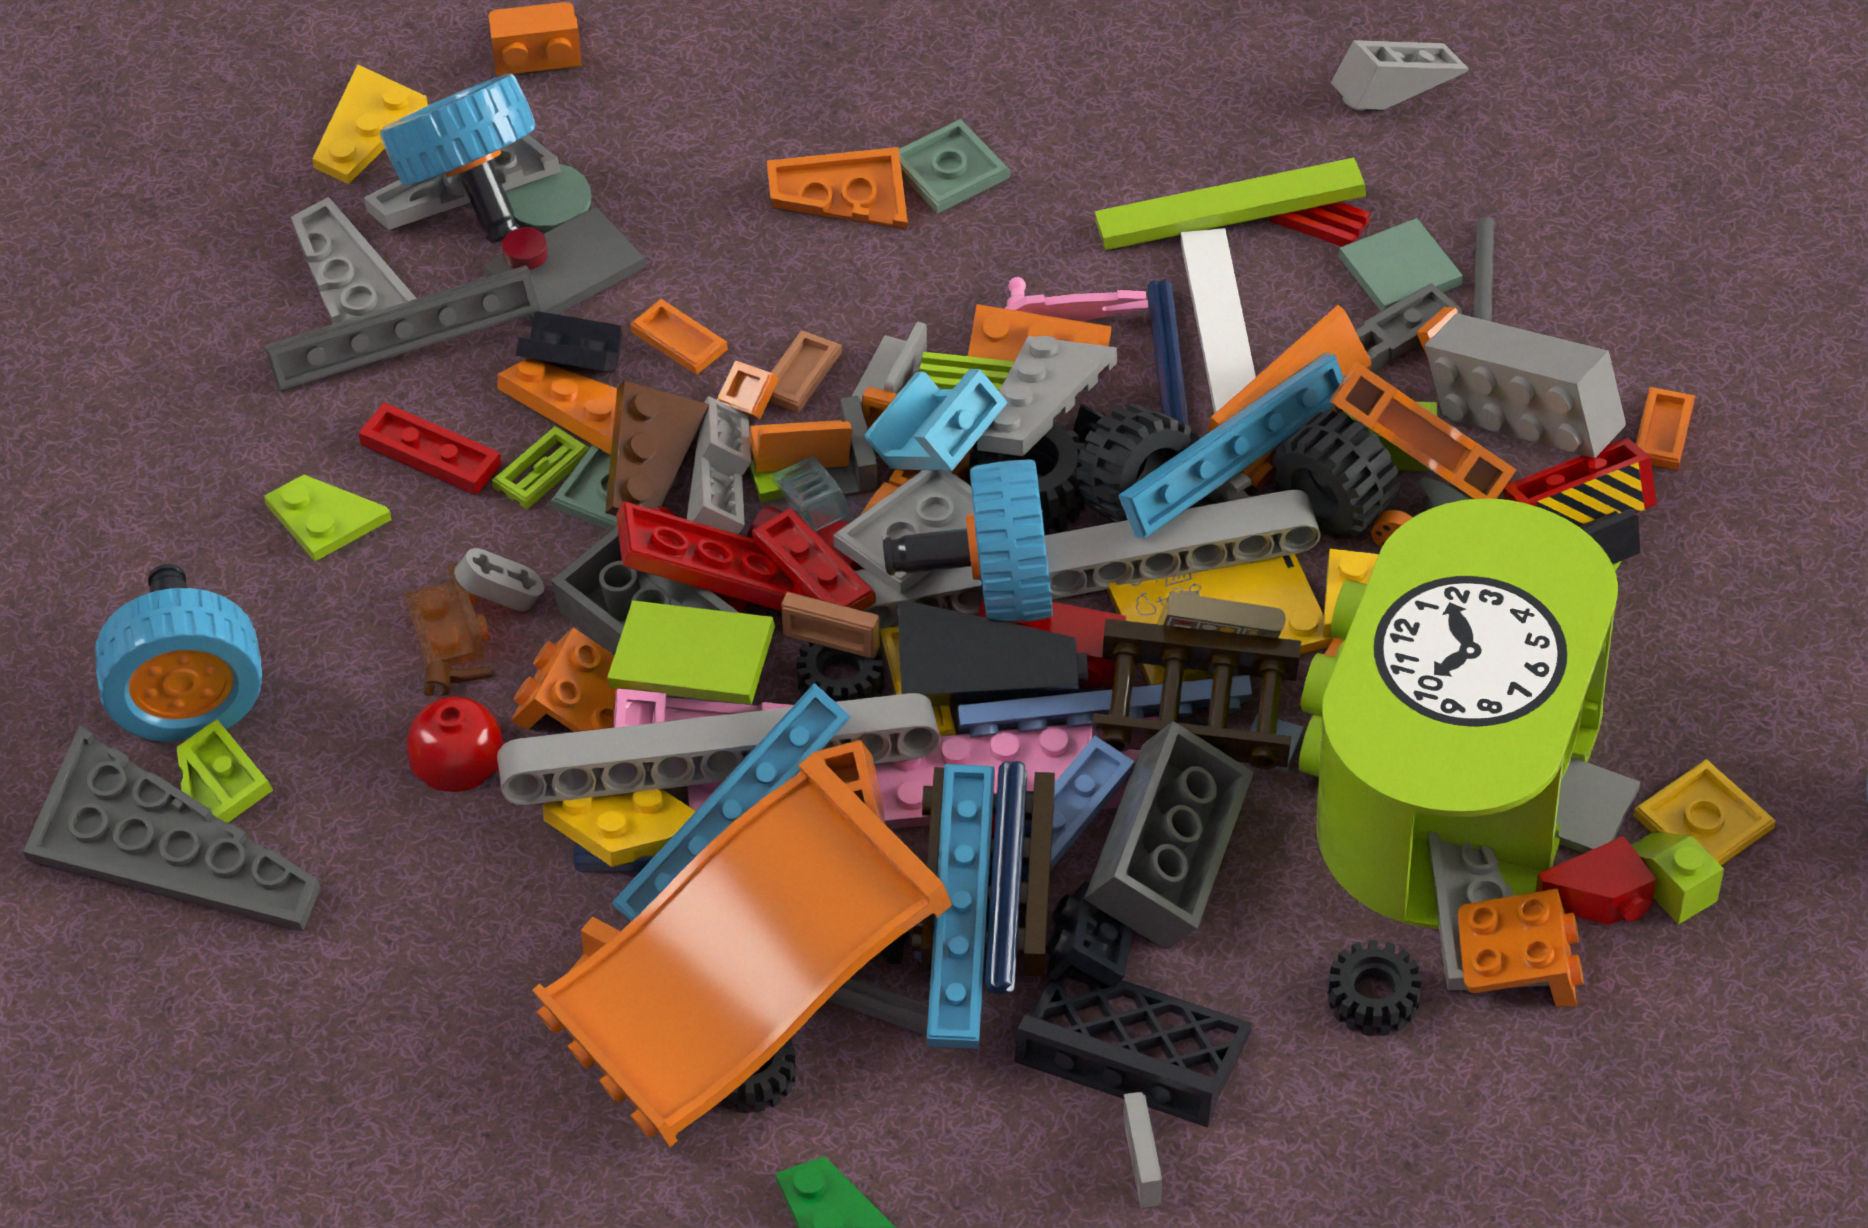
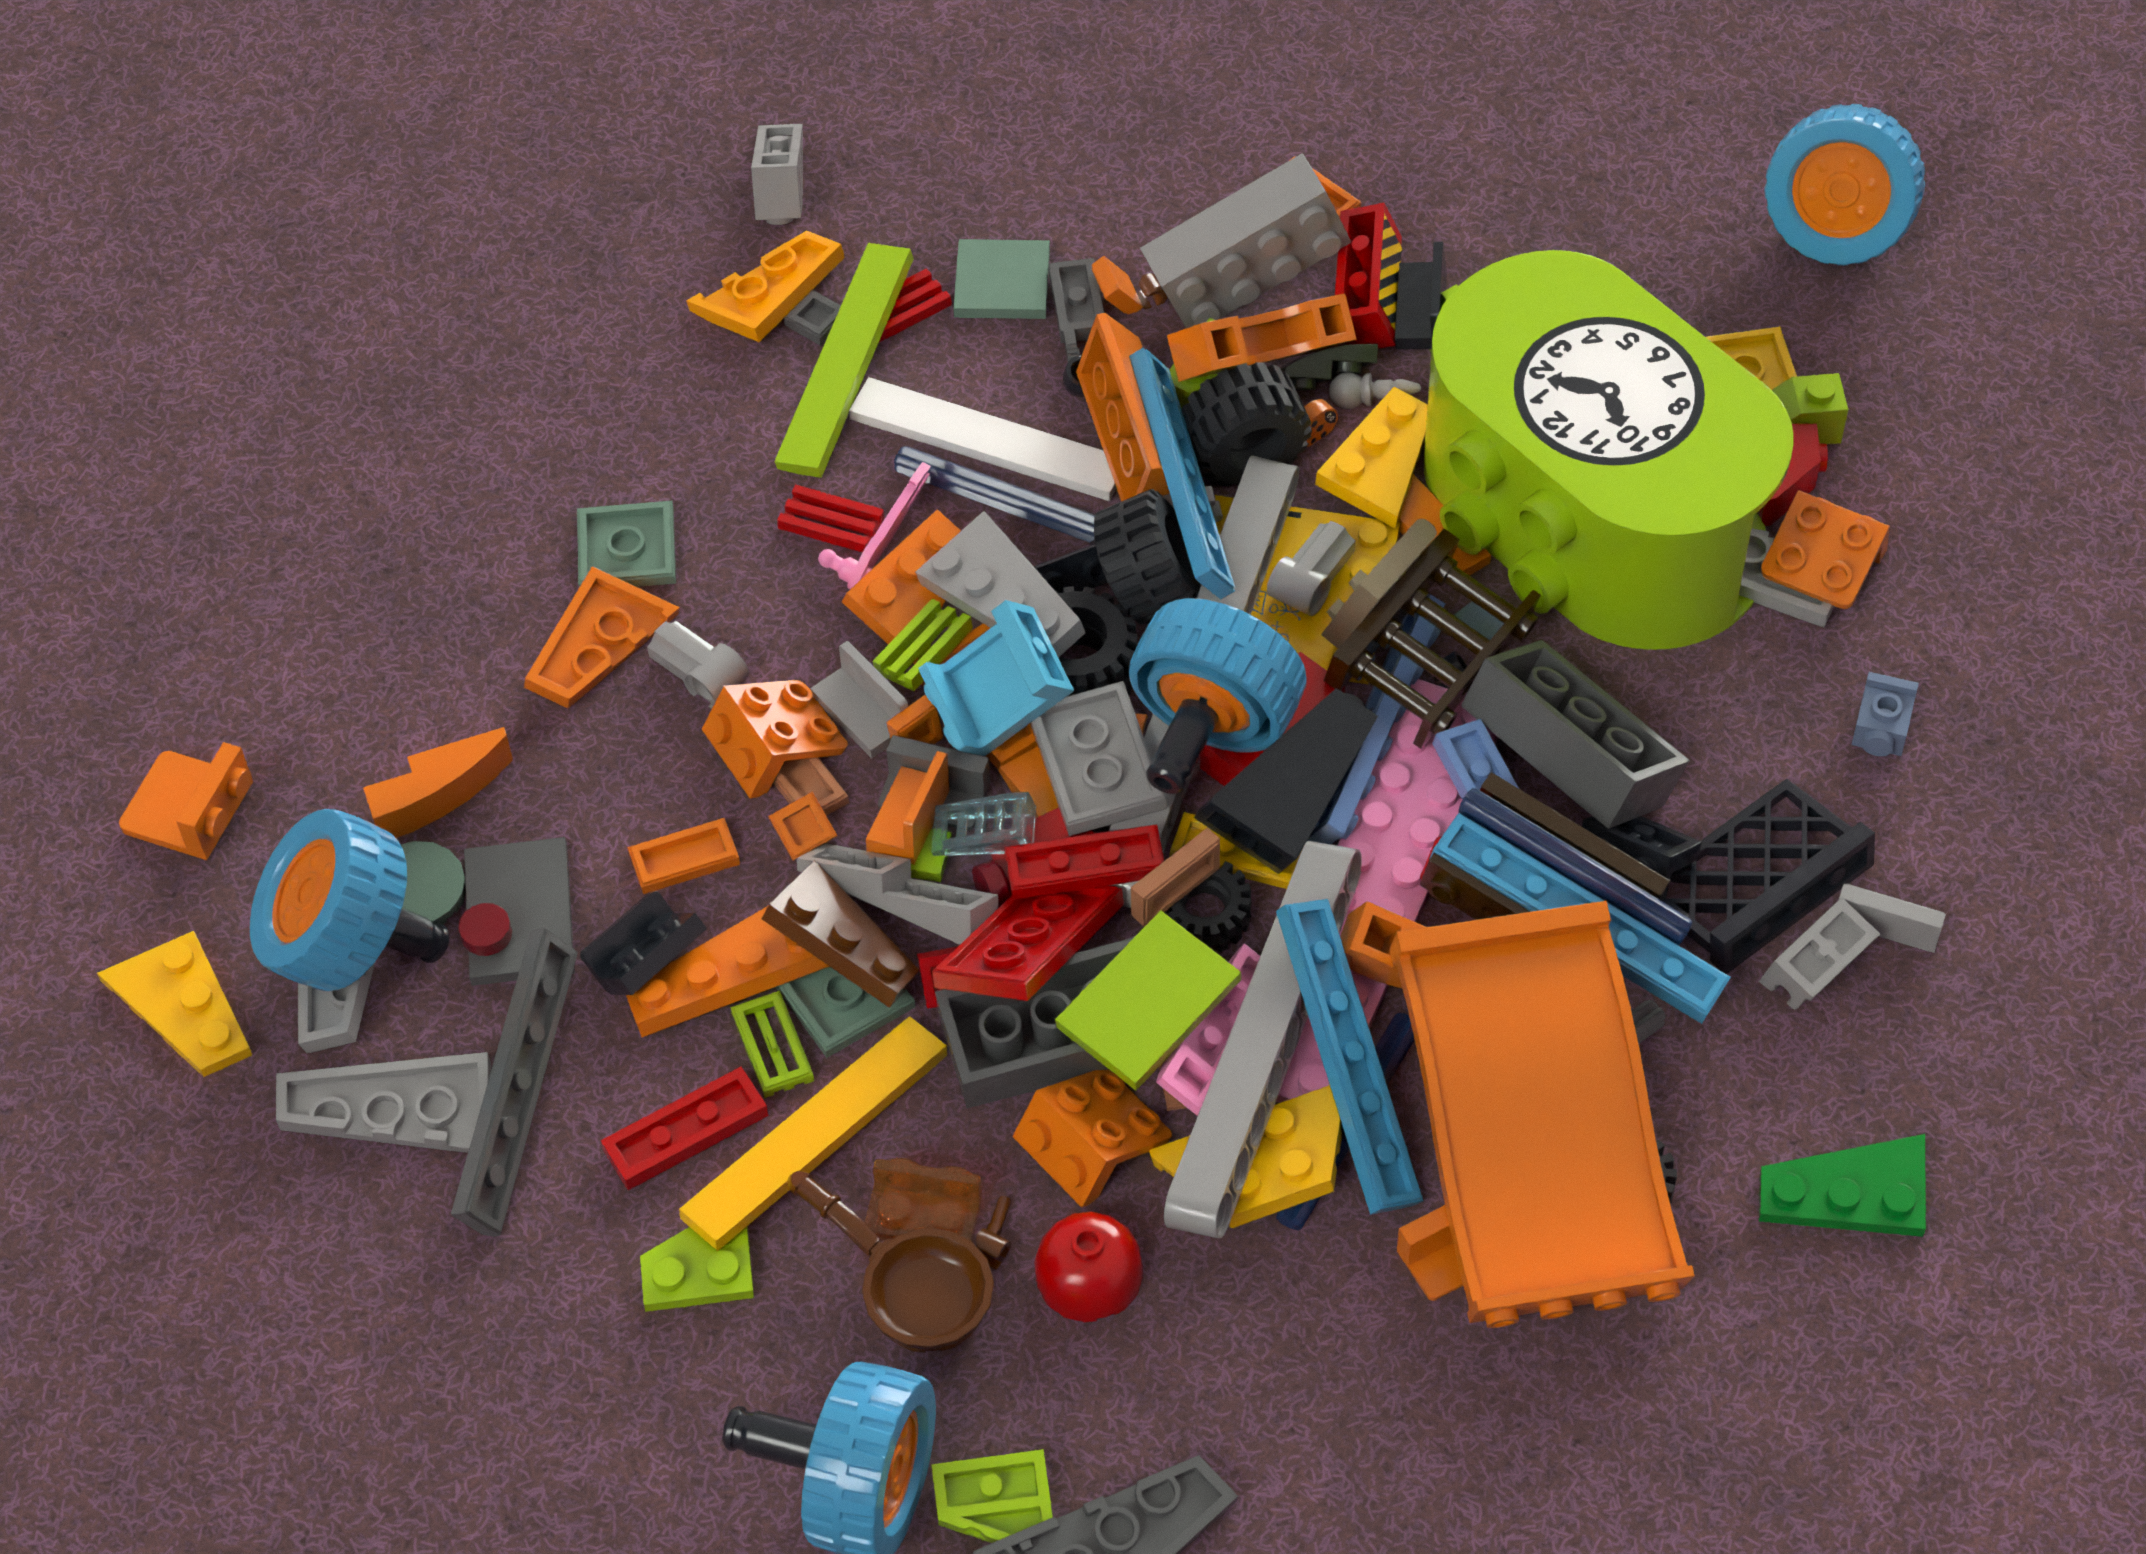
camera: 60 degrees left, 5 degrees up
(372, 646) = (921, 1286): none -> reddish brown piece
(461, 521) = (813, 1132): none -> yellow tile
(499, 579) = (914, 1134): light grey beam -> none
(640, 161) = (438, 782): none -> orange slope
(829, 329) = (768, 724): none -> orange bracket
(859, 260) = (696, 662): none -> light grey piece
(1060, 248) = (831, 511): none -> red tile
(1066, 1107) = (1820, 953): none -> light grey hinge
(1209, 580) = (1307, 577): none -> light grey piece
(1262, 127) = (768, 293): none -> light orange wing
(1265, 163) = (813, 317): none -> dark grey tile
(1367, 1066) = (1884, 714): none -> sand blue brick
(1371, 1012) = (1807, 650): black tyre -> none
(1484, 268) = (1065, 234): dark grey bar -> none

